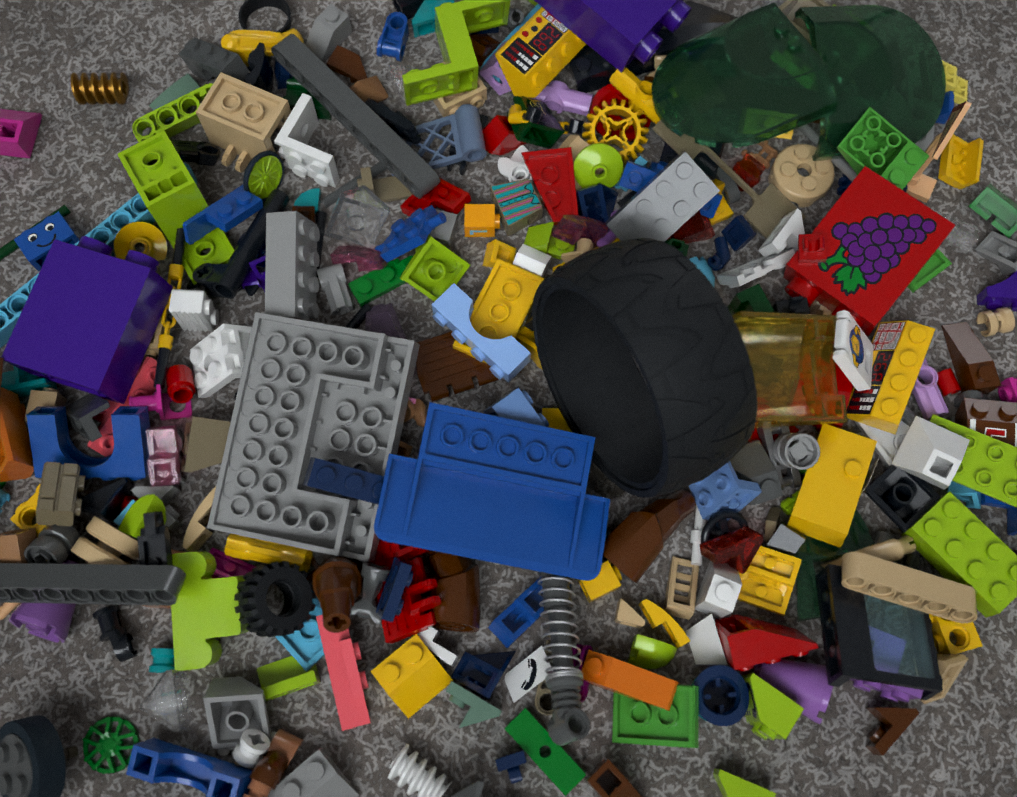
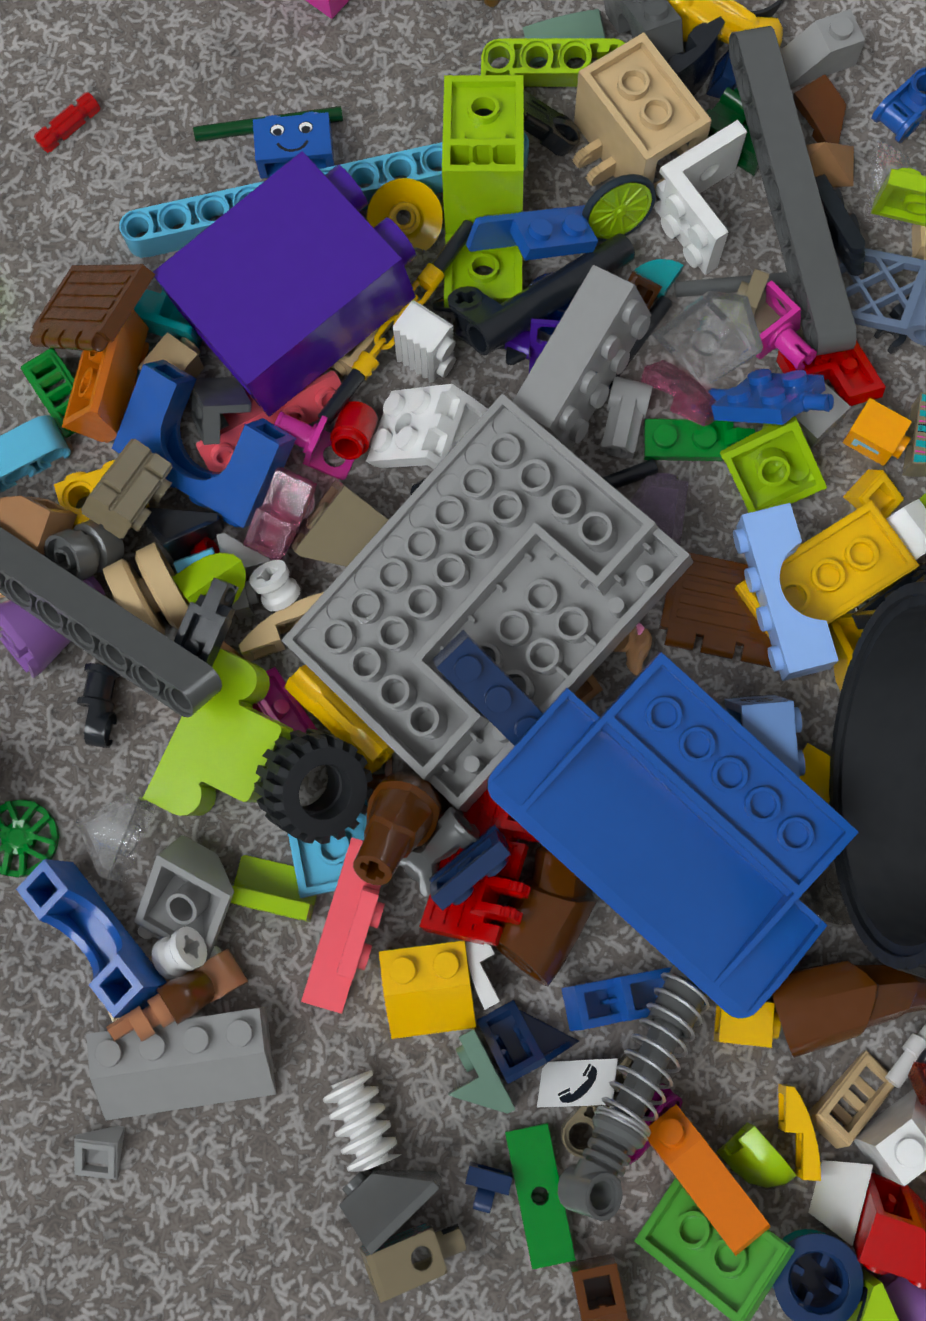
camera: 40 degrees right, 5 degrees up
(162, 660) = (135, 774): teal wheel -> none
(184, 499) = (275, 585): none -> white wheel
(396, 193) = (783, 333): none -> dark pink bracket
(627, 615) = (755, 1091): tan slope -> none

